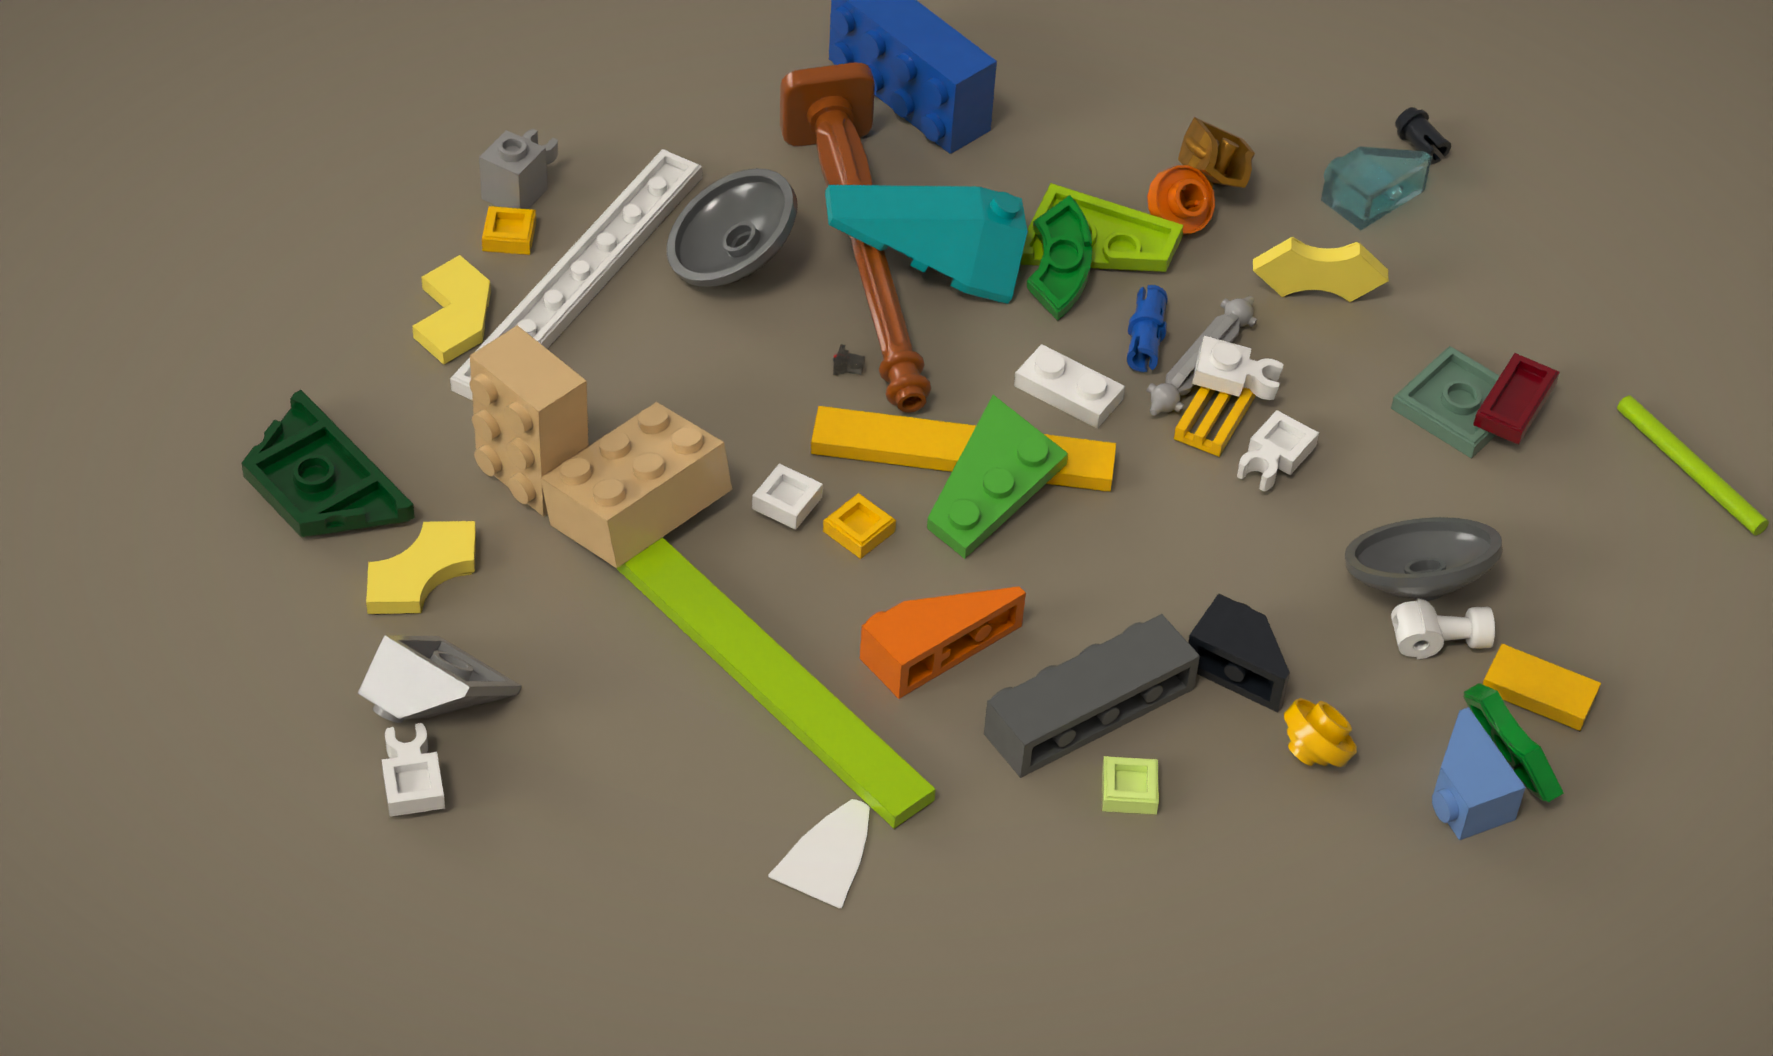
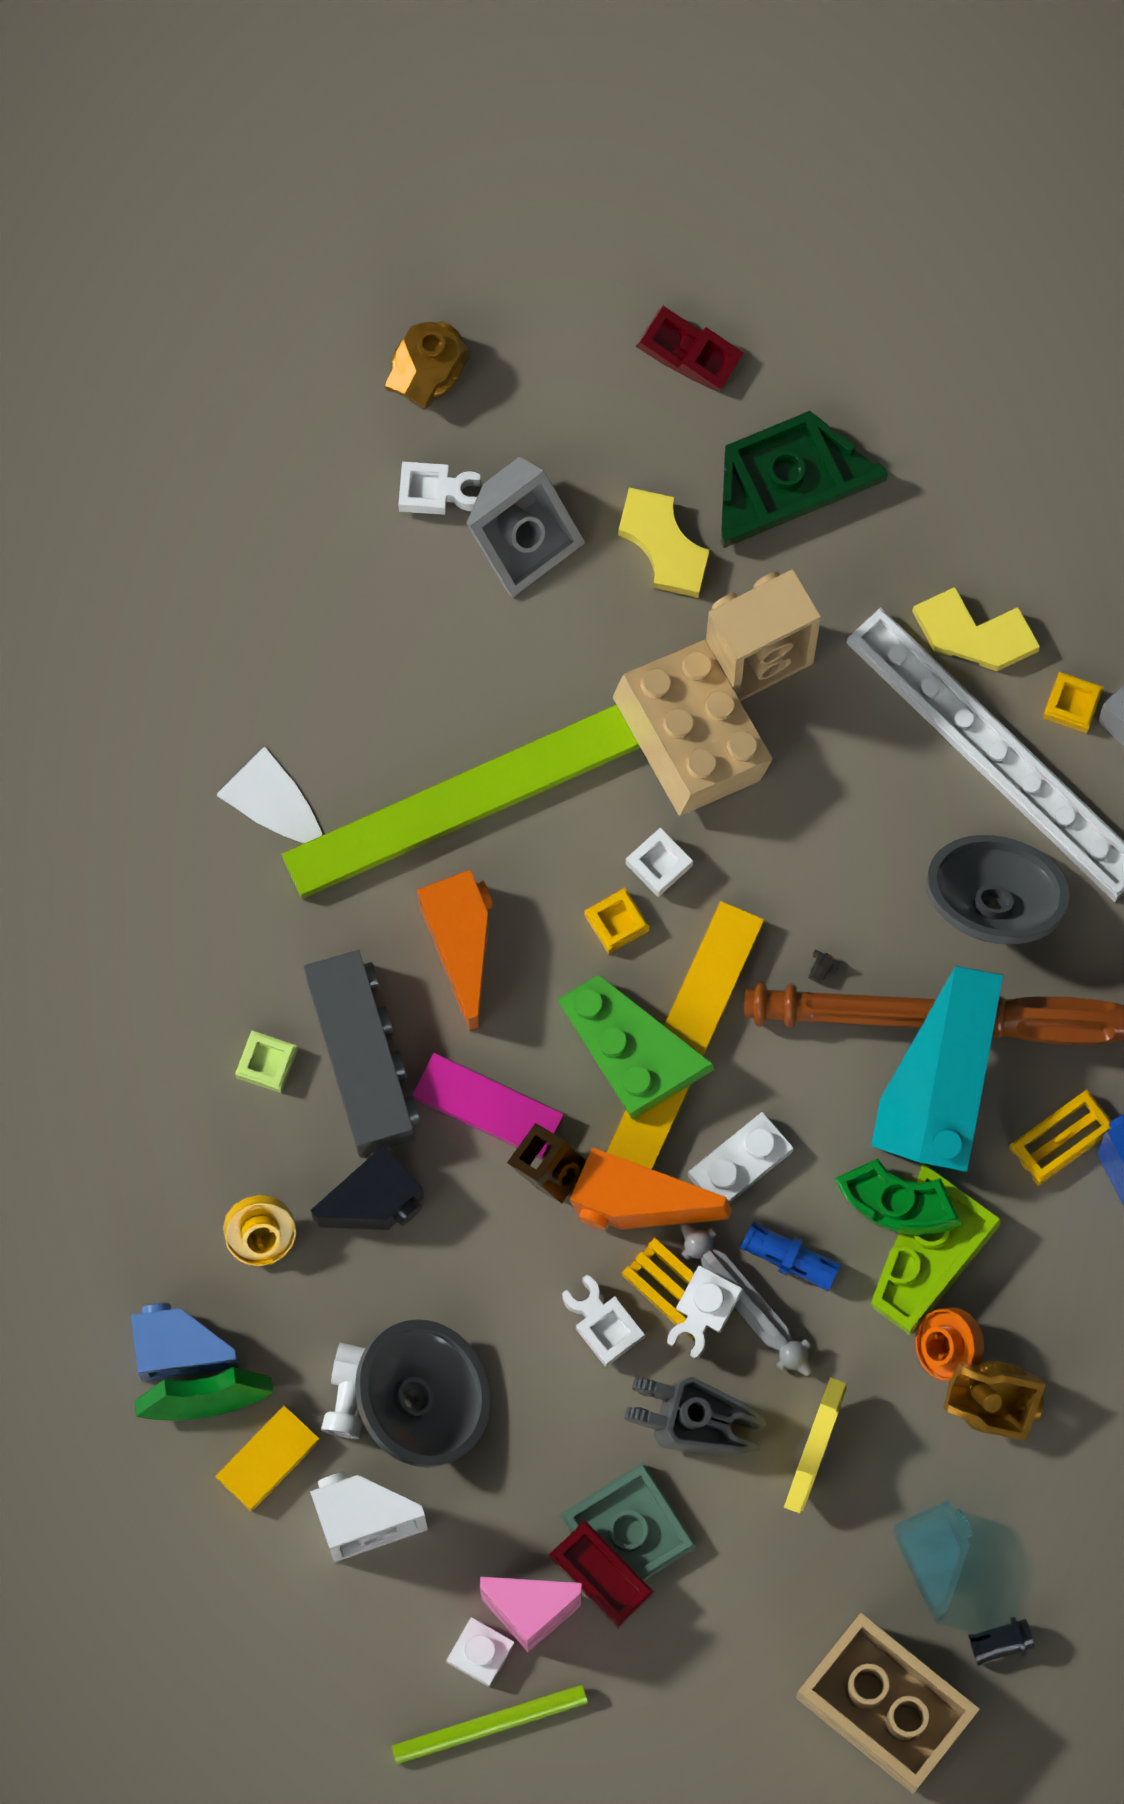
camera: 110 degrees right, 25 degrees up
(183, 589) = (687, 350): none -> dark red slope
(252, 812) = (427, 362): none -> pearl gold hand
(931, 173) = (1030, 1162): none -> yellow tile
(1097, 584) = (483, 1103): none -> dark pink tile
(1146, 503) = (559, 1169): none -> dark brown brick
(1148, 439) = (635, 1196): none -> orange slope
(1340, 356) = (695, 1417): none -> dark grey hinge
(1522, 183) = (887, 1703): none -> tan brick
(1572, 570) = (363, 1515): none -> white slope
(1579, 423) = (530, 1607): none -> bright pink slope
(1631, 484) = (480, 1652): none -> white plate

